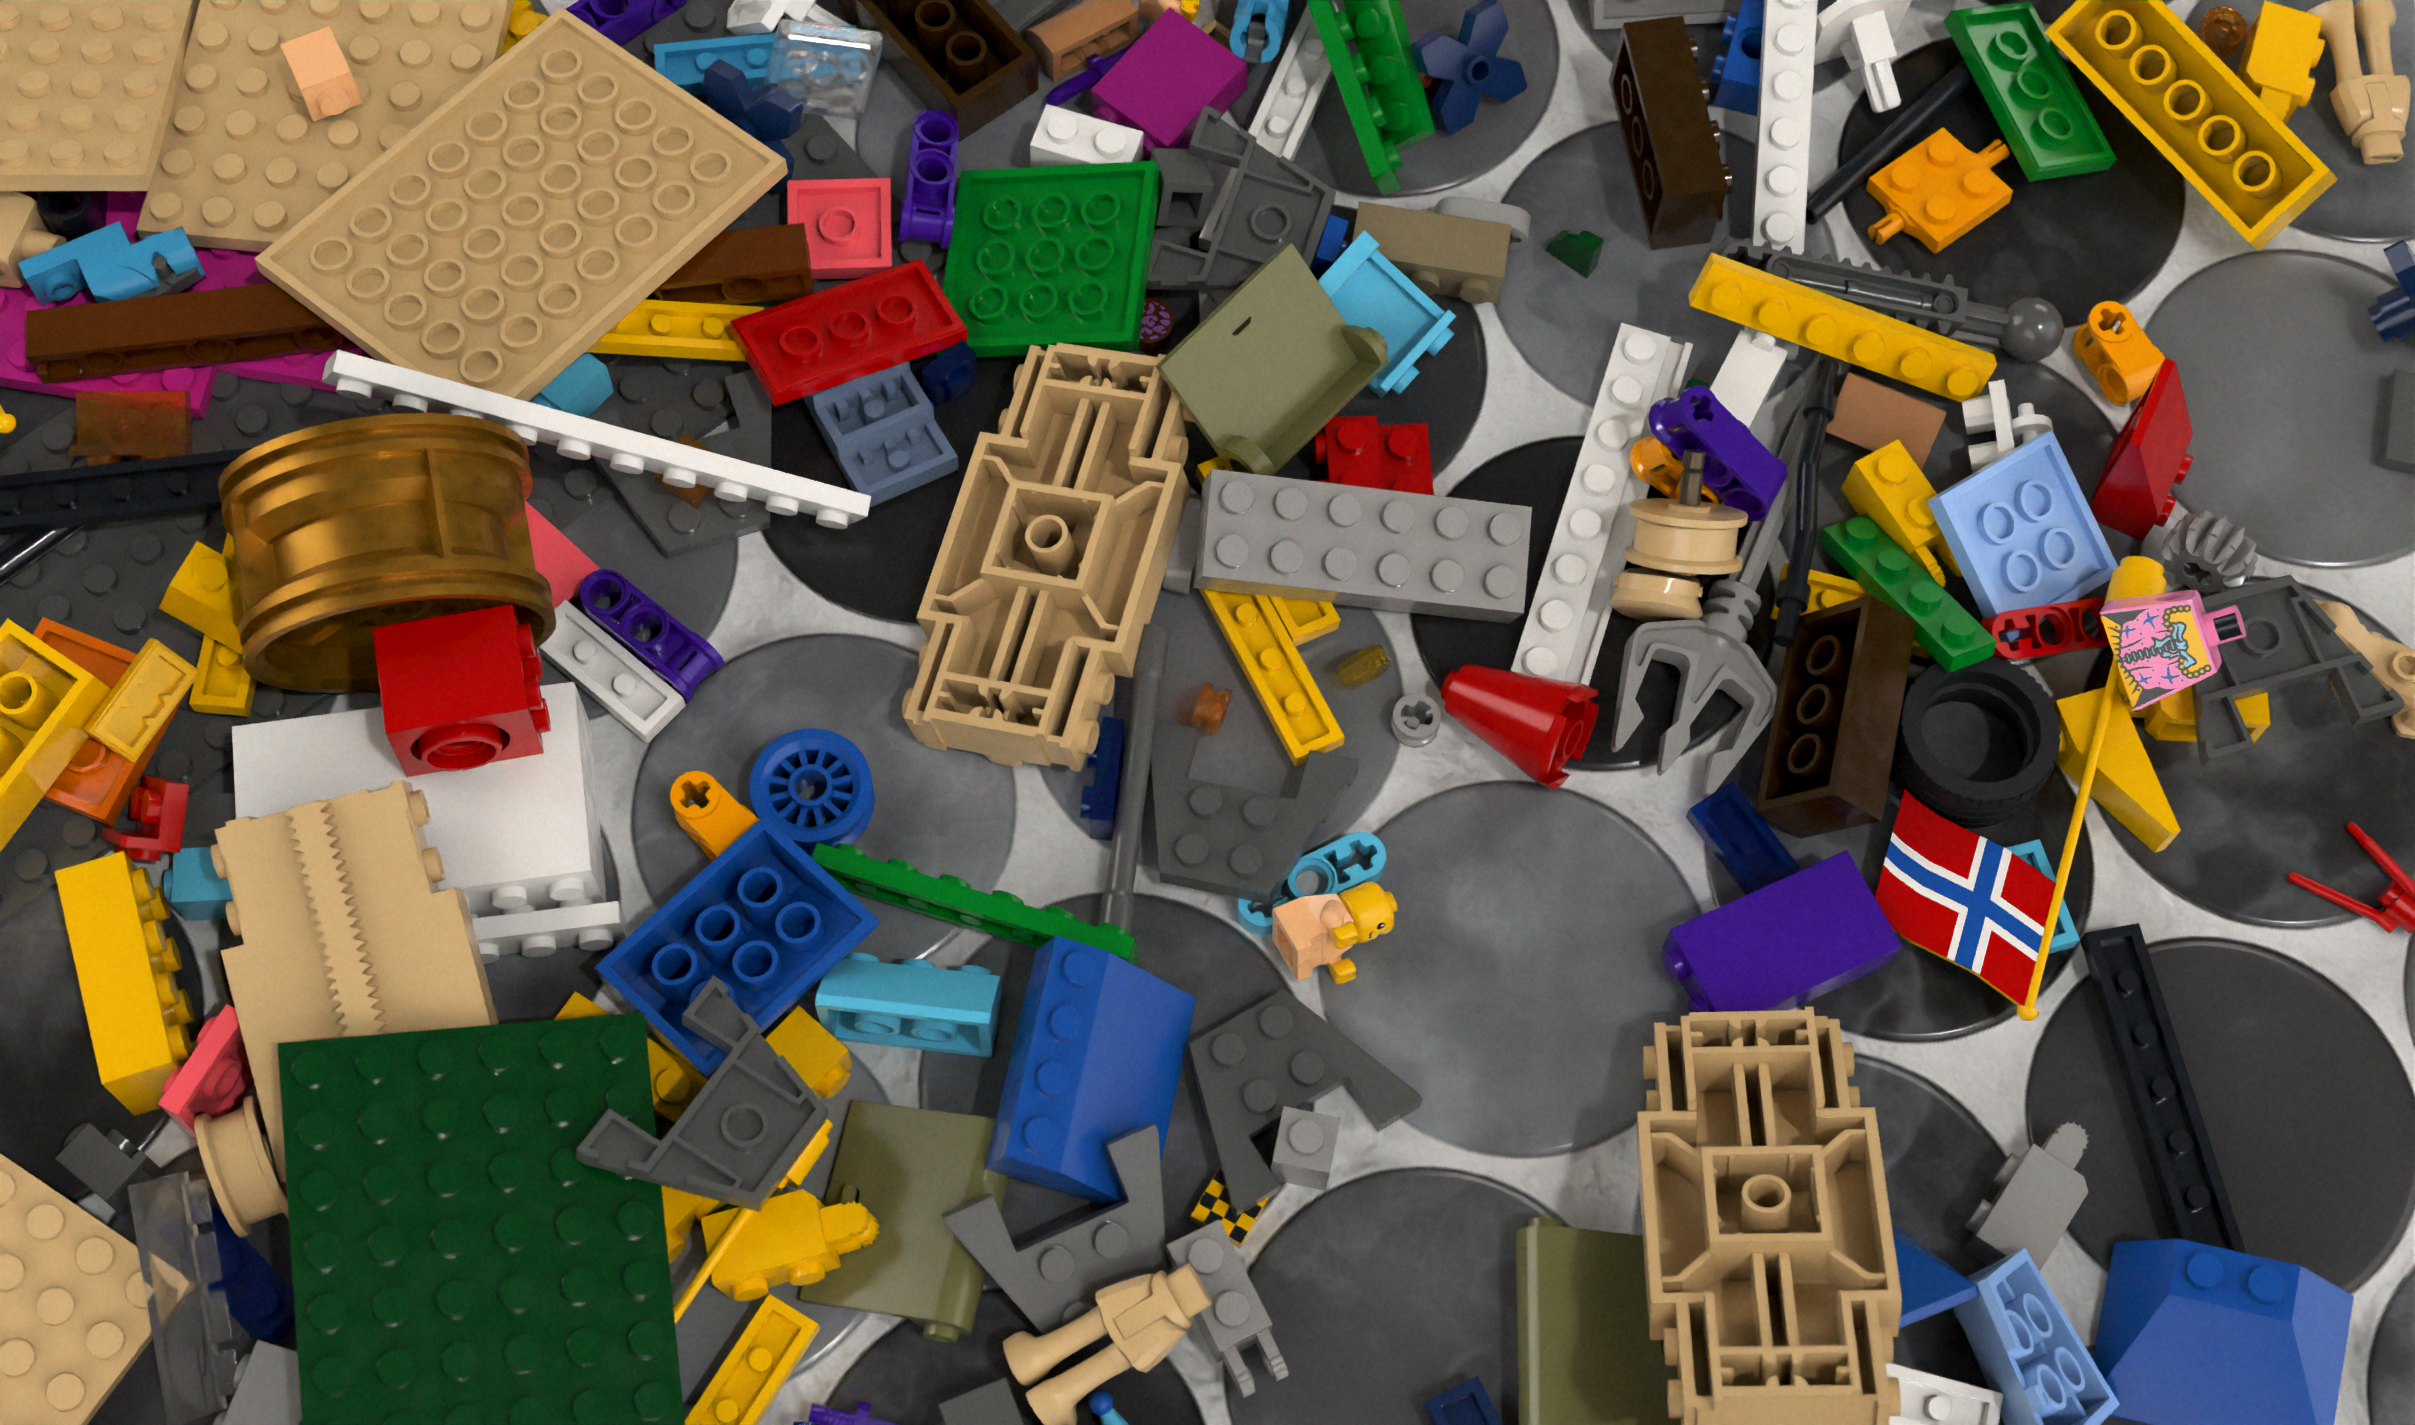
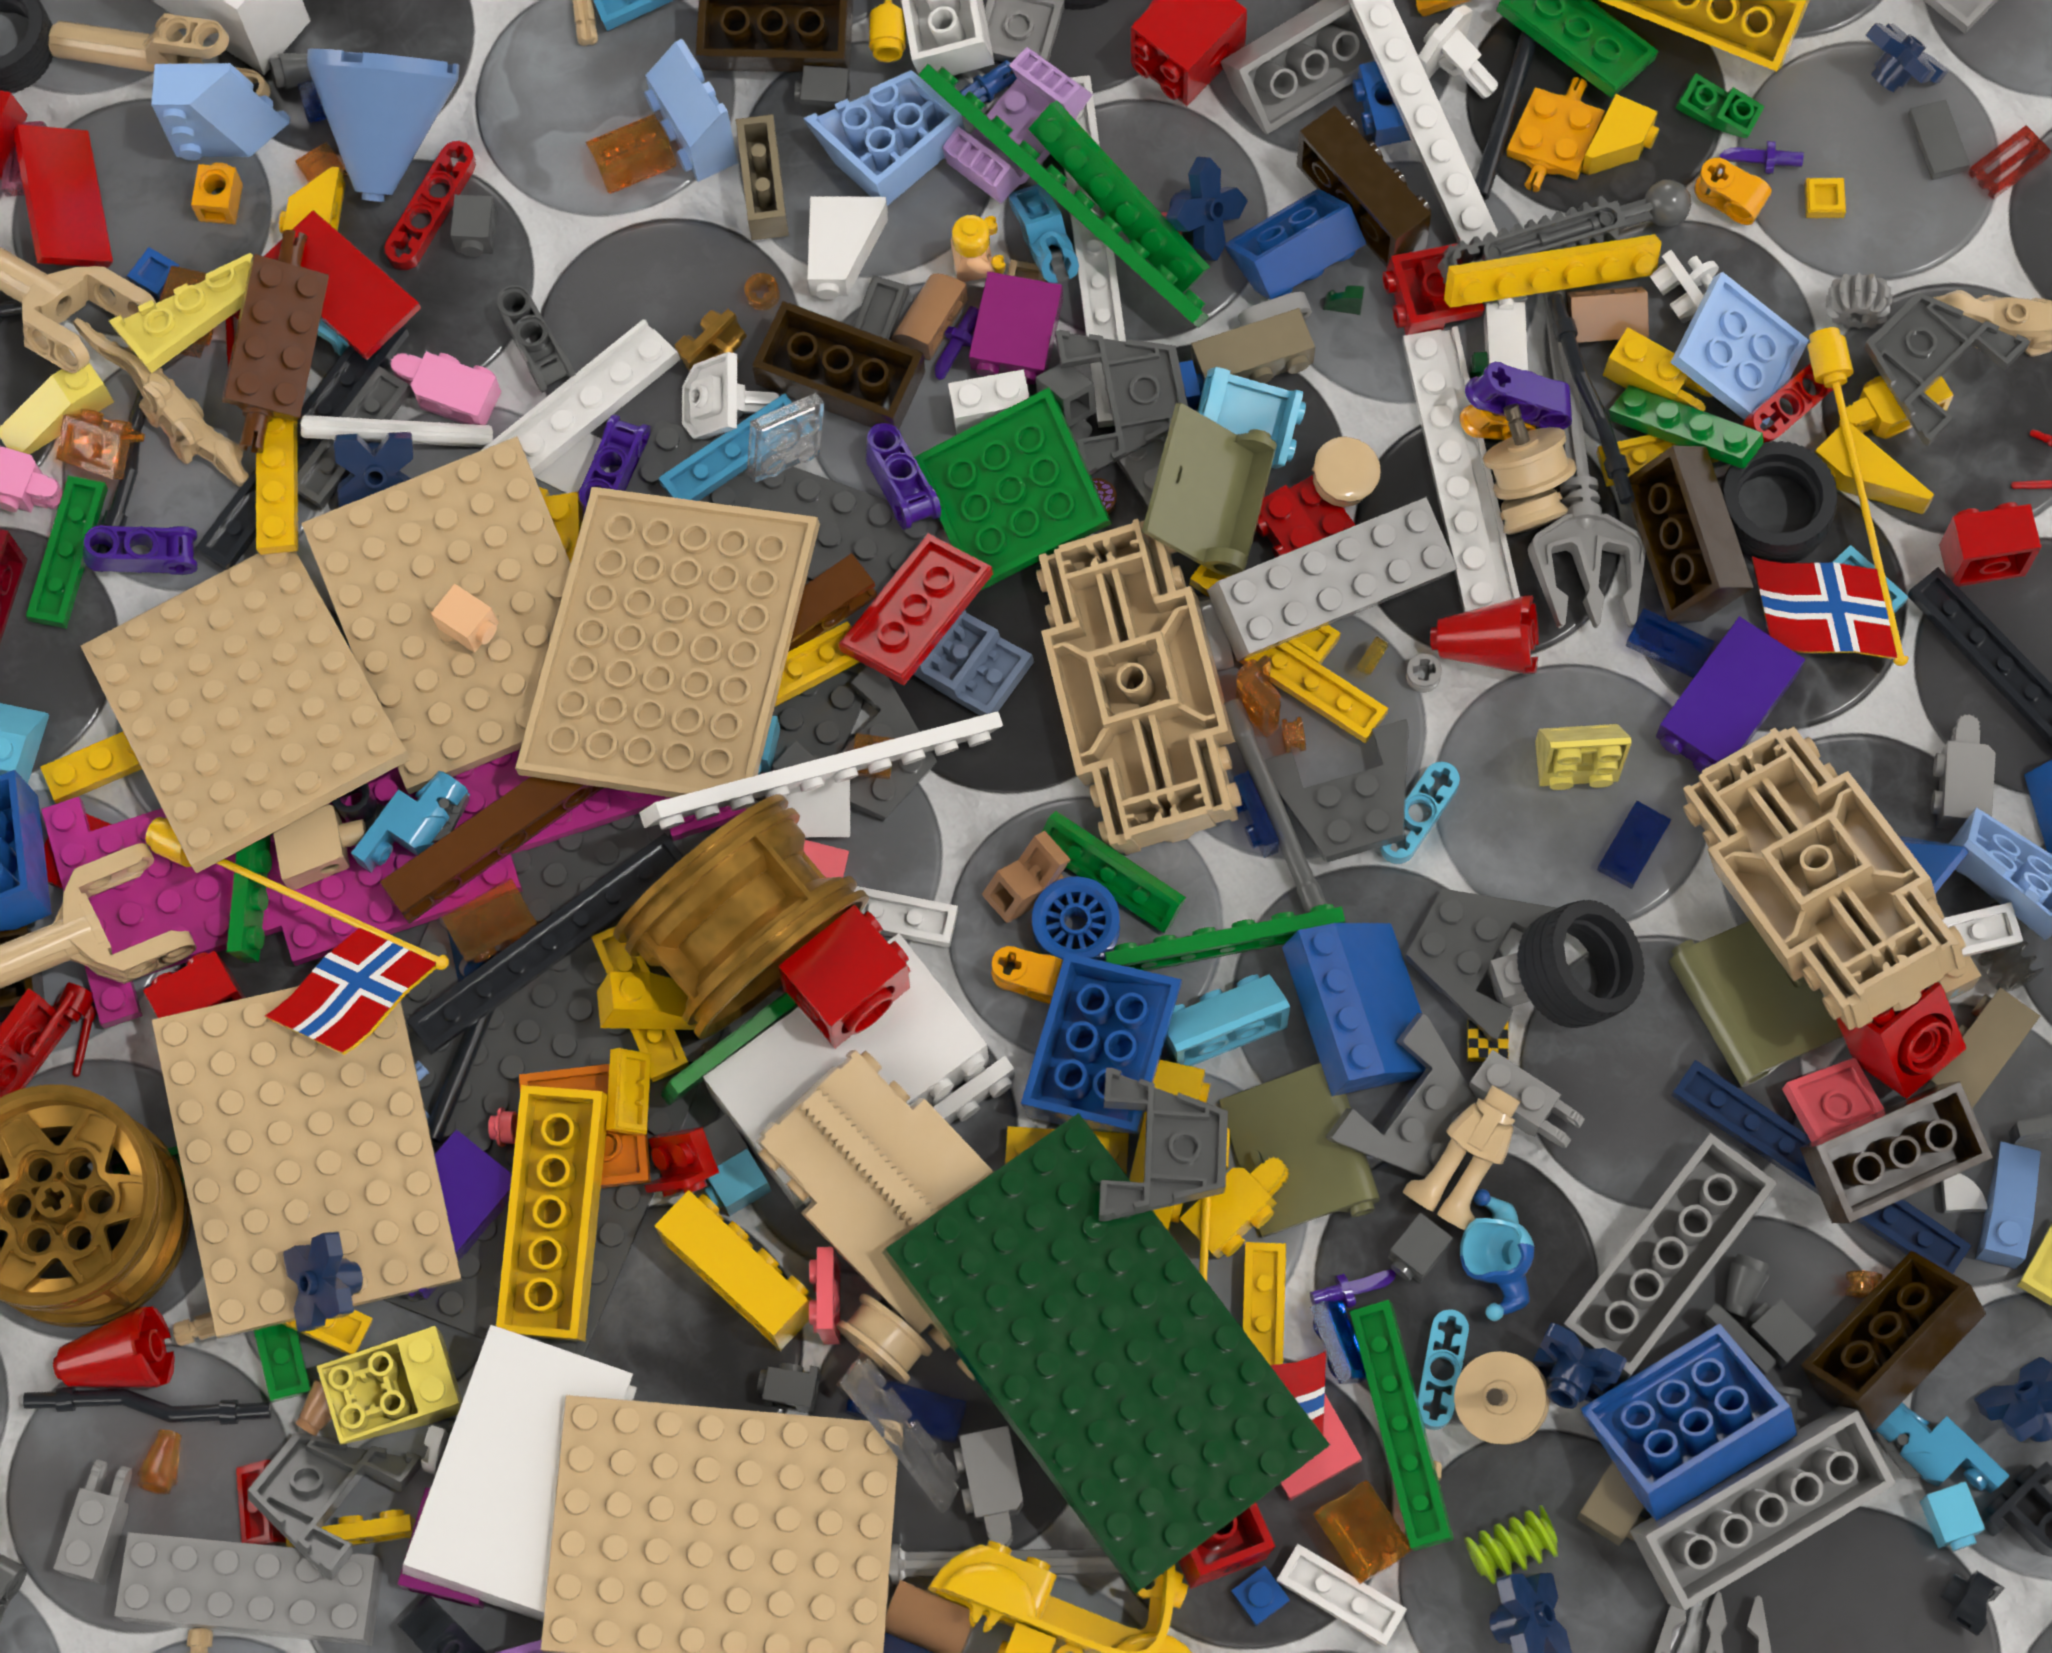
camera: 20 degrees left, 5 degrees up
(212, 723) = (727, 1047): none -> green tile
(593, 499) = (823, 809): none -> white sticker
(674, 656) = (931, 875): dark purple piece -> none
(762, 112) = (764, 489): dark blue plant -> none
(769, 708) = (1021, 882): none -> medium nougat brick
(844, 224) = (865, 531): coral tile -> none
(891, 753) = (1123, 878): none -> green plate
(950, 374) = (994, 601): clear blue plate -> none
(1194, 624) = (1259, 695): none -> clear orange bracket
(1324, 926) = (1447, 834): piece -> none
(1450, 1172) = (1611, 948): none -> black tyre
(1456, 436) = (1345, 471): none -> tan piece
(1547, 916) = (1581, 755): none -> light yellow slope
(1555, 160) = (1296, 243): none -> blue slope
(1557, 1063) = (1634, 844): none -> clear blue plate
(1667, 272) = (1421, 292): none -> red plate
(2015, 228) = (1621, 136): none -> yellow slope
(2146, 459) = (1787, 258): red slope -> none
(2155, 259) = (1723, 110): none -> green slope
(2167, 642) = (1867, 379): torso -> none
(2188, 342) = (1768, 157): none -> dark purple piece
(2221, 928) = (1990, 544): none -> red brick
(2232, 421) = (1825, 198): none -> yellow tile

